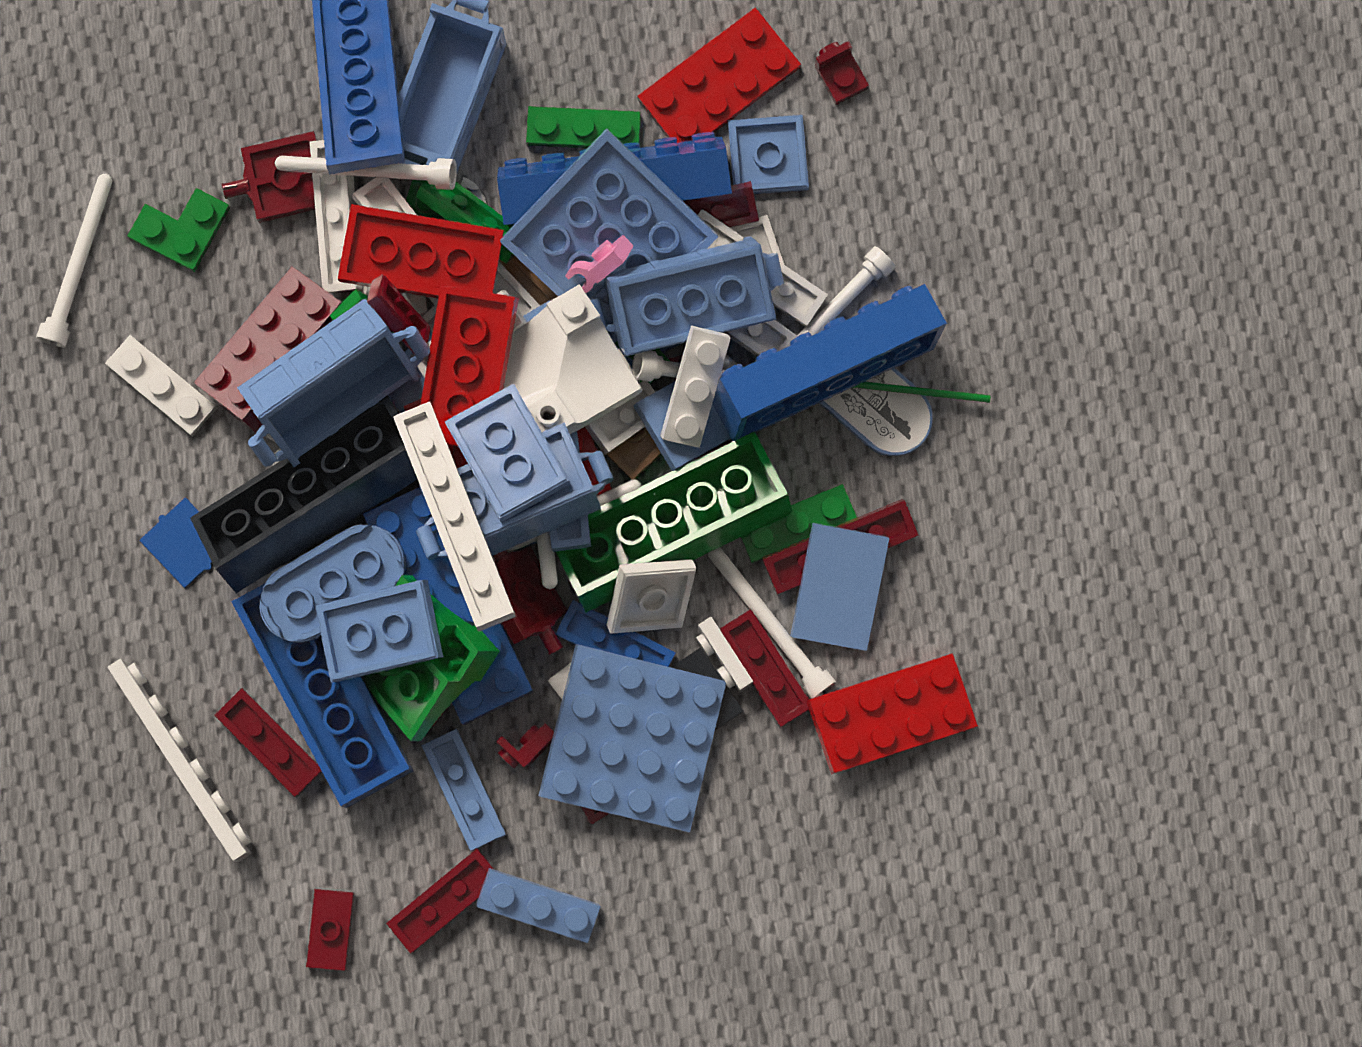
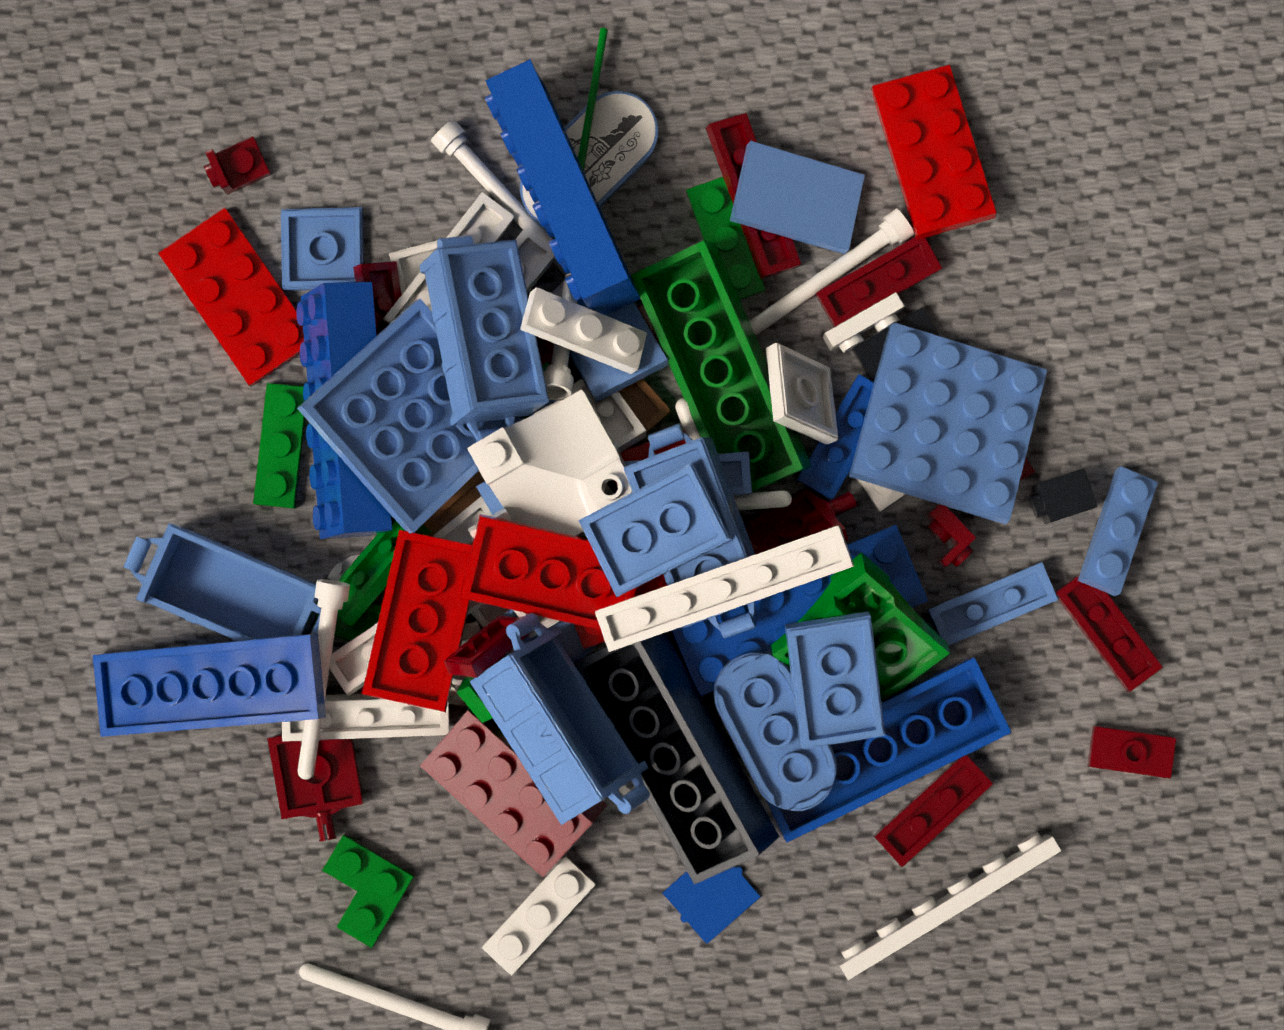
camera: 85 degrees left, 5 degrees up
(567, 850) = (1062, 497): none -> black brick
(606, 260) = (443, 416): bright pink plate -> none

